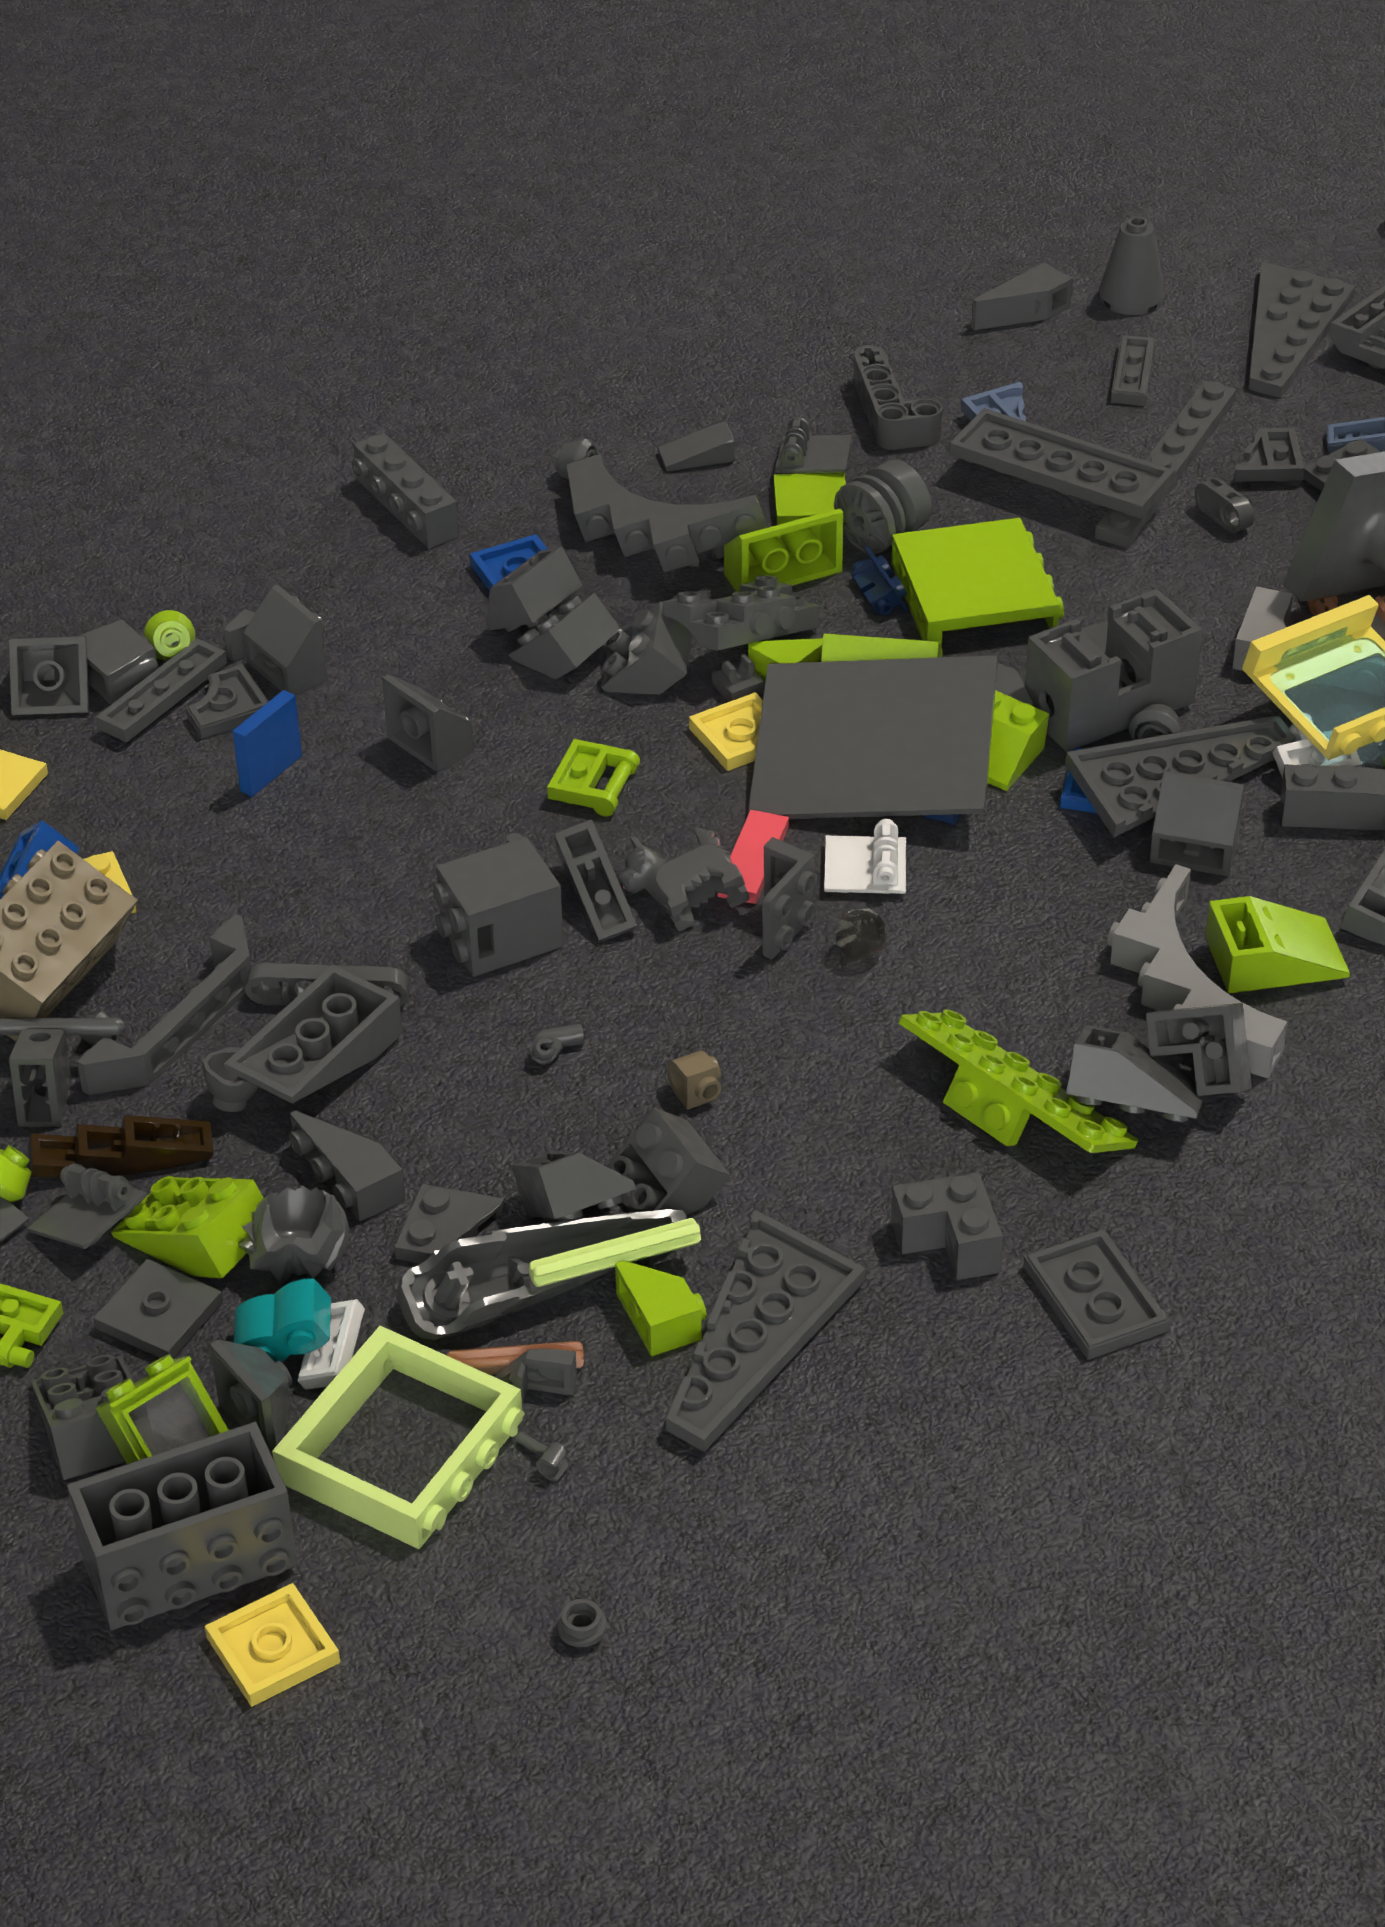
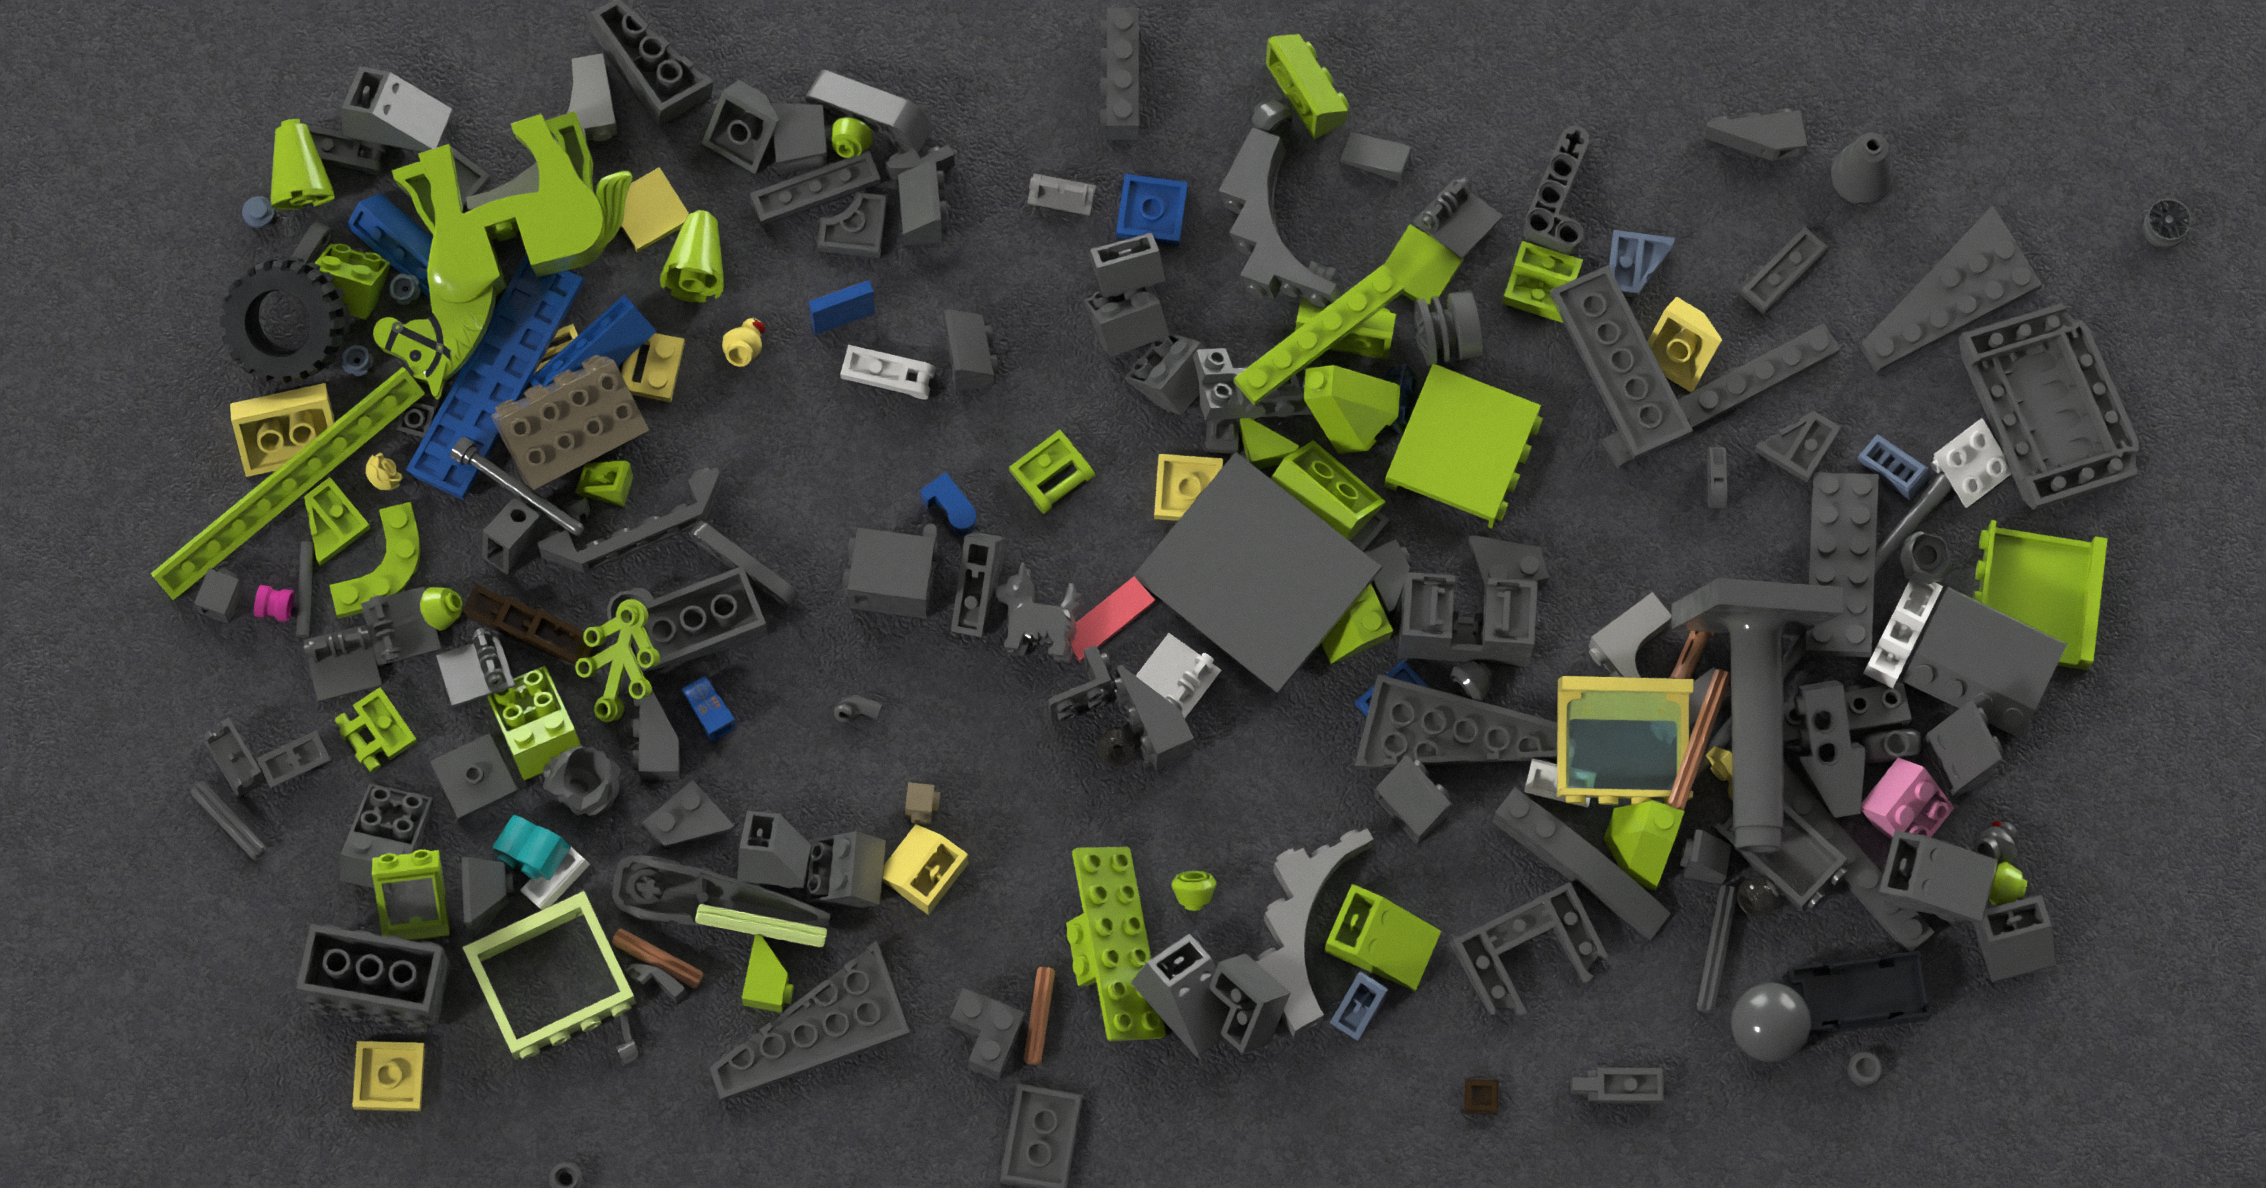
camera: 30 degrees right, 30 degrees up
(82, 786) = (695, 260): none -> lime cone
(118, 988) = (606, 481): none -> lime slope
(181, 824) = (743, 343): none -> light yellow animal
(196, 593) = (879, 110): none -> beam
(253, 1101) = (621, 658): none -> lime plant
(355, 781) = (887, 371): none -> white plate
(391, 1117) = (709, 709): none -> blue leg
(404, 594) = (1061, 194): none -> light grey hinge
(495, 828) = (951, 503): none -> blue leg
(569, 416) = (1306, 84): none -> lime slope
(751, 1121) = (924, 867): none -> light yellow slope
(772, 534) = (1318, 334): none -> lime plate
(846, 584) = (1350, 406): none -> lime slope
(885, 877) = (1156, 720): none -> dark grey slope
(932, 460) = (1533, 277): none -> lime slope
(1006, 1209) = (1039, 1015): none -> nougat axle
(1050, 1003) = (1194, 889): none -> lime cone
(1104, 424) = (1684, 343): none -> light yellow slope
(1310, 1002) = (1359, 1006): none -> sand blue slope

